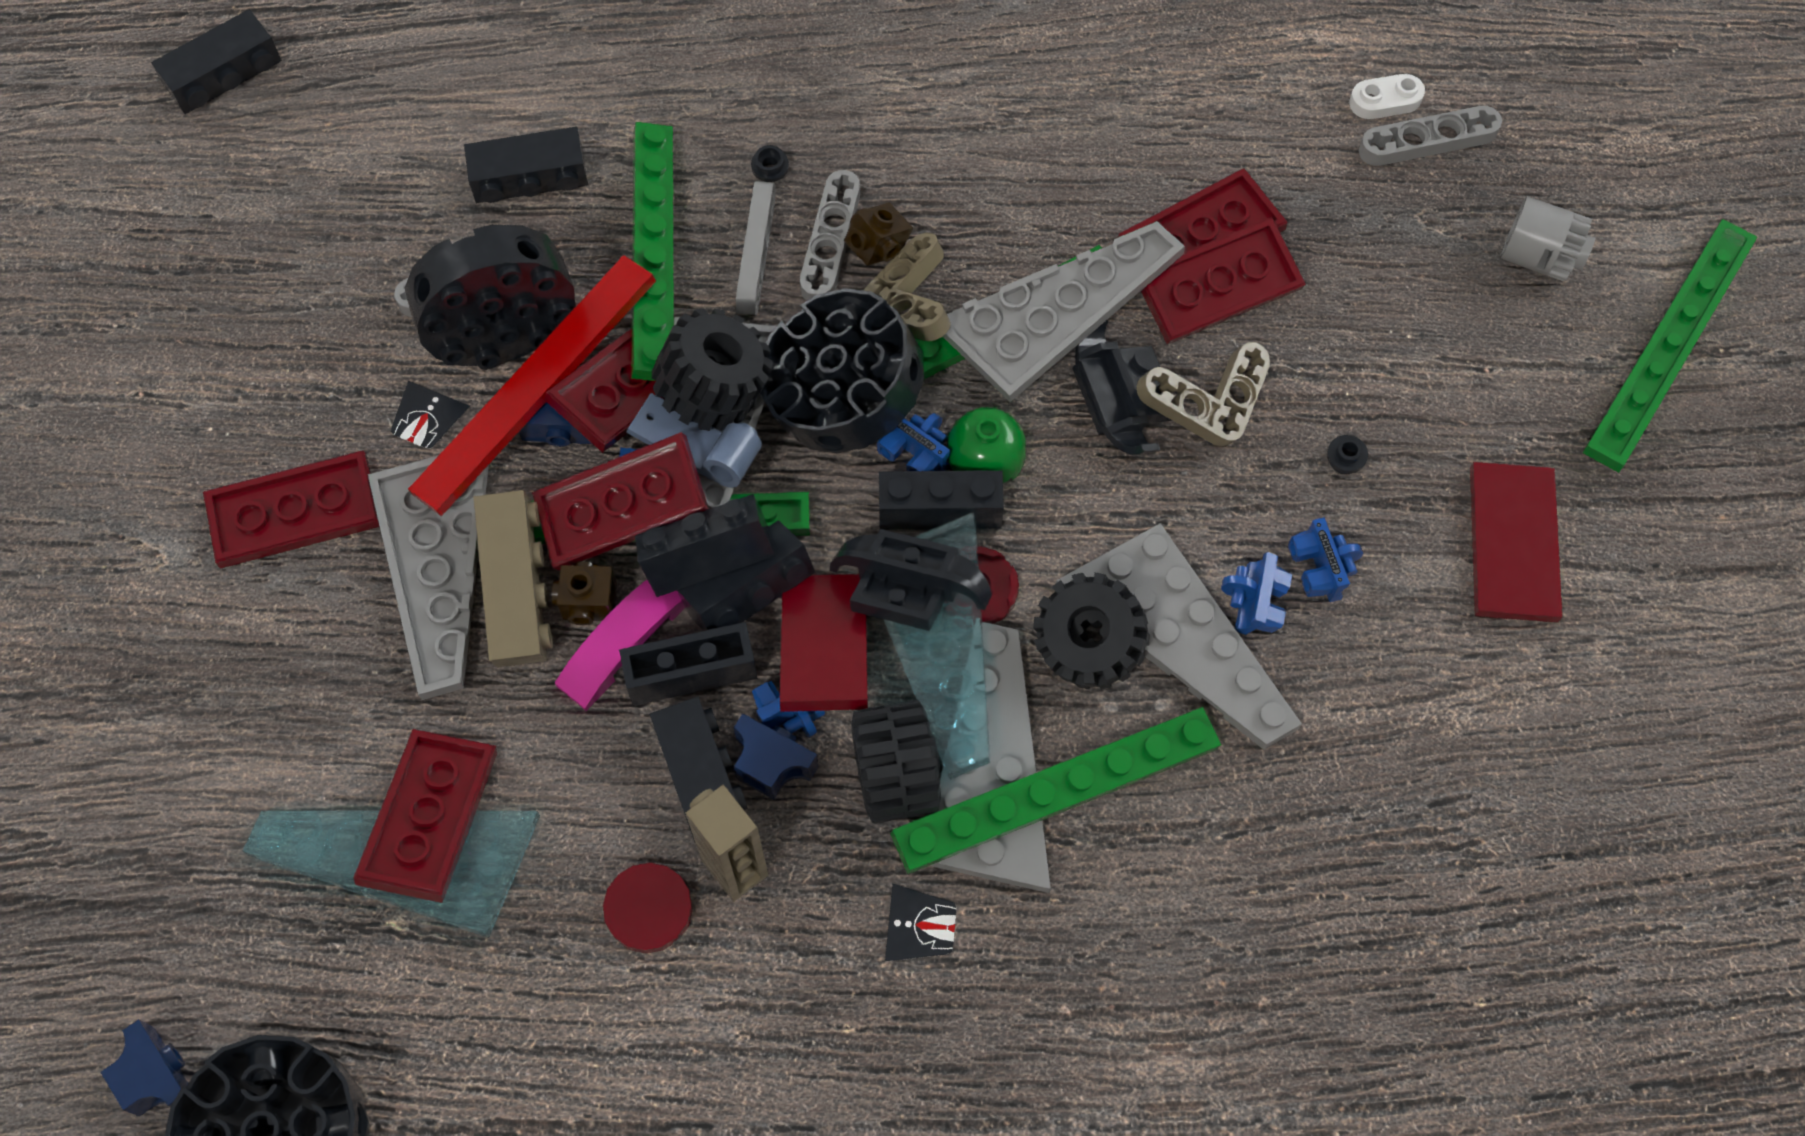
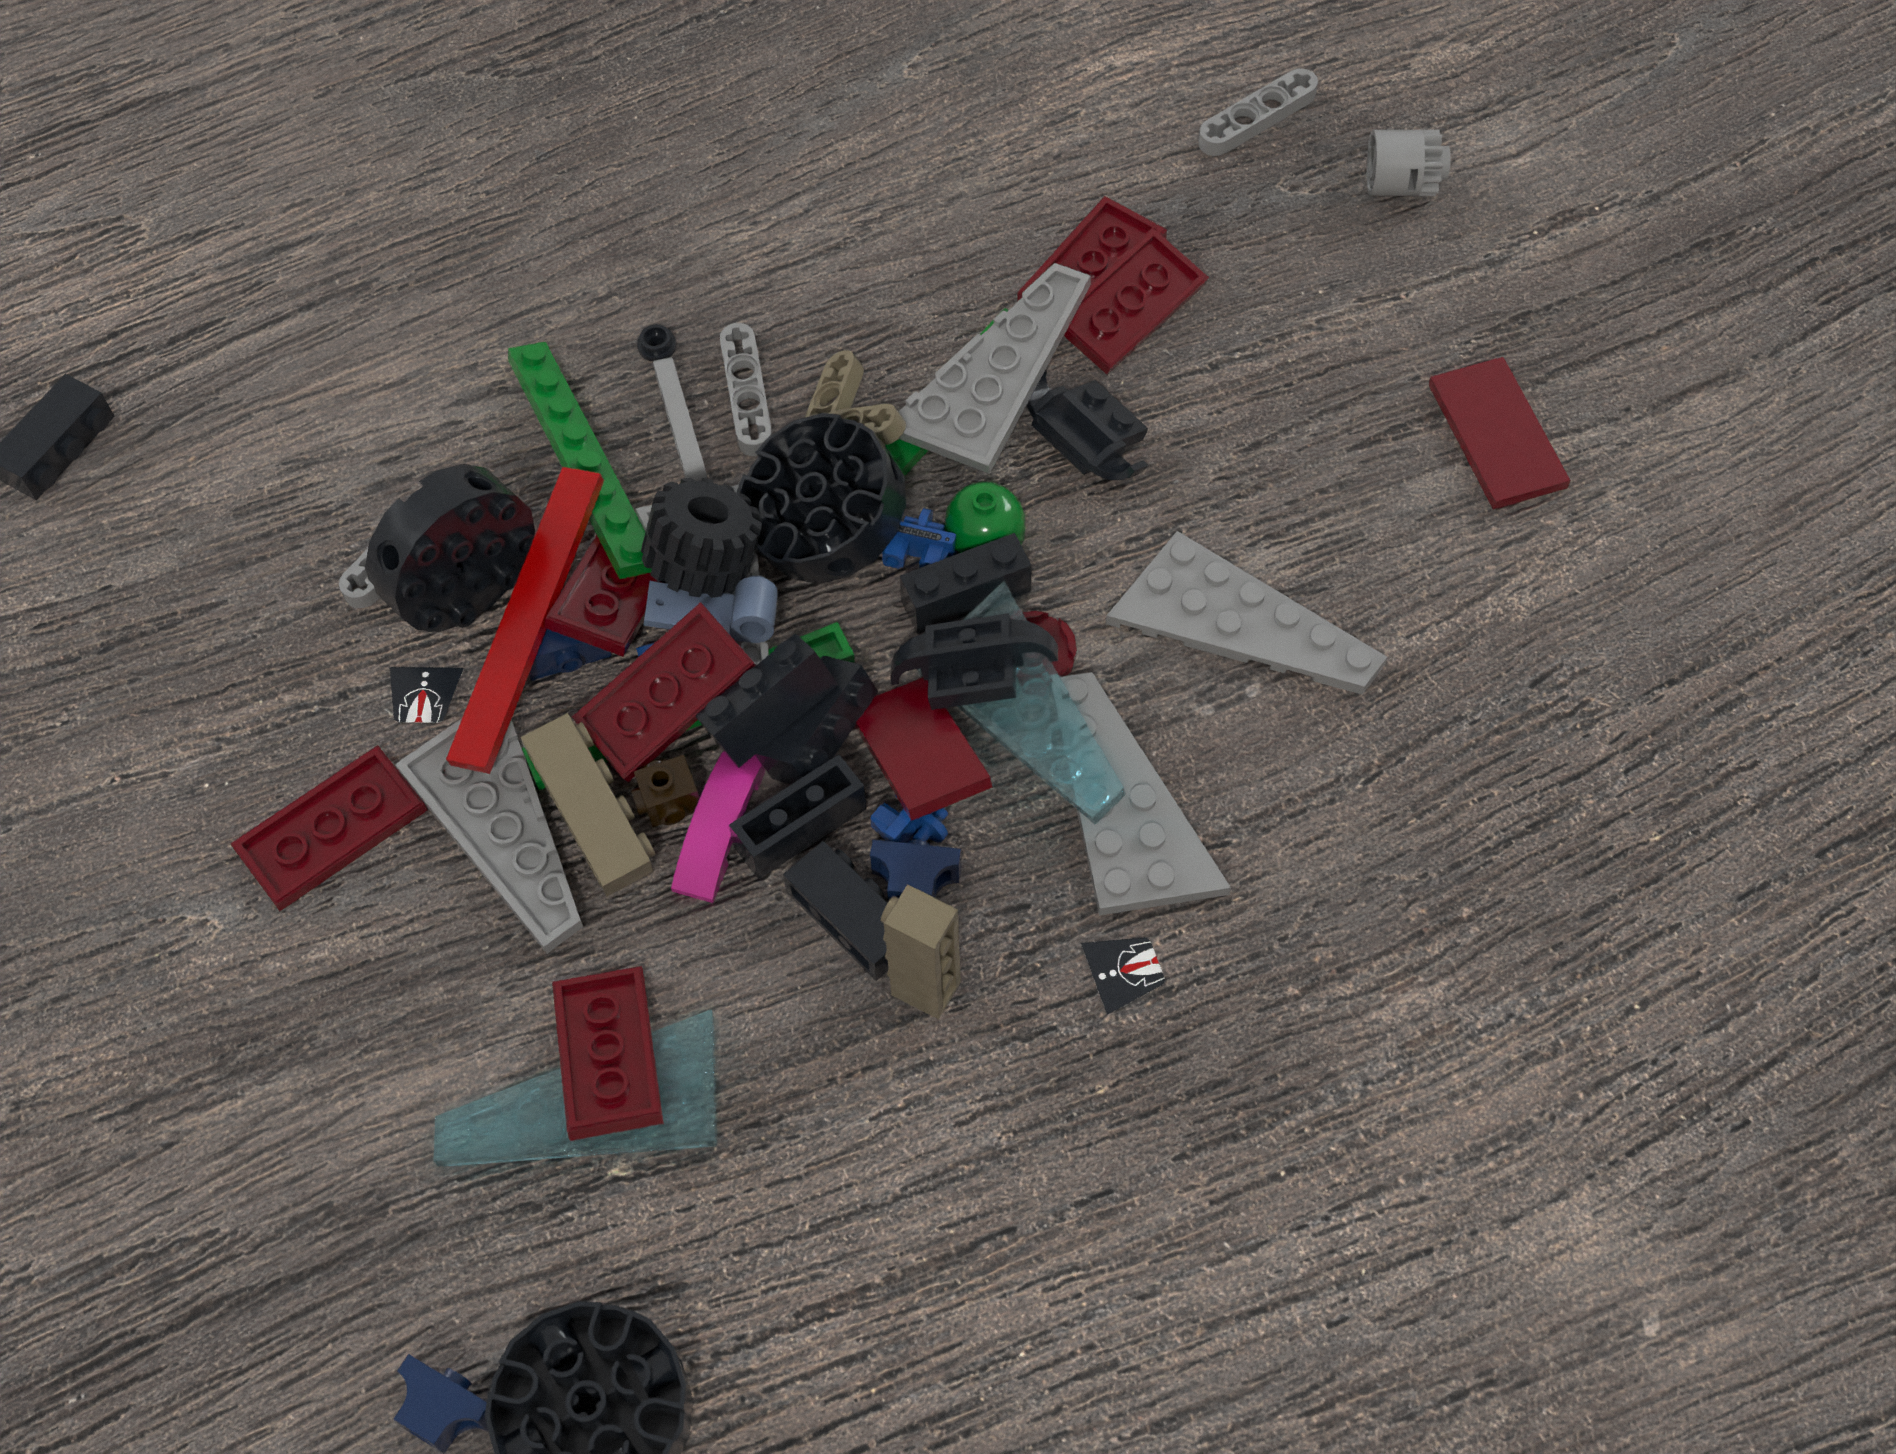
camera: 20 degrees left, 5 degrees down
(525, 165) = (417, 425): black brick -> none
(647, 907) = (860, 1055): dark red tile -> none
(877, 233) = (793, 368): dark brown brick -> none
(896, 761) = (1040, 824): black wheel -> none
(1054, 790) = (1192, 799): green plate -> none
(1094, 603) = (1153, 620): black wheel -> none
(1211, 408) = (1131, 410): dark tan beam -> none
(1252, 593) = (1290, 558): blue hips -> none
(1332, 559) = (1344, 504): blue hips -> none
(1347, 464) = (1313, 419): black plate -> none
(1391, 96) = (1203, 91): white plate -> none
(1669, 346) = (1552, 219): green plate -> none

